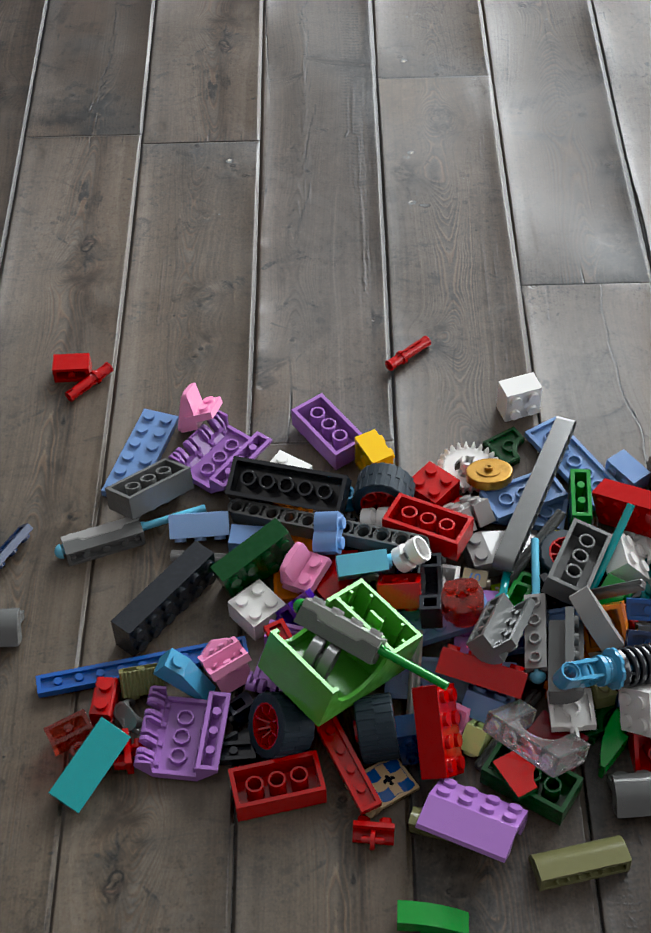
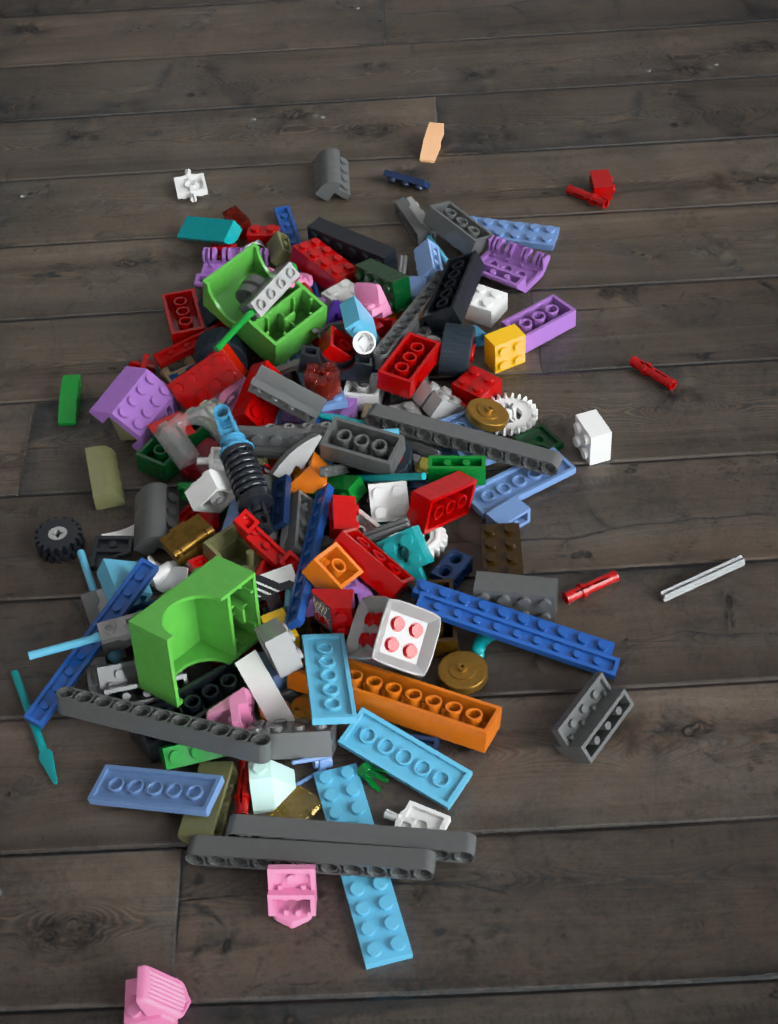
camera: 90 degrees right, 5 degrees down
(183, 674) = (277, 252): dark azure slope -> none
(194, 624) = (322, 263): none -> red brick
(195, 410) = (550, 240): bright pink piece -> none
(328, 533) = (396, 307): medium blue brick -> none

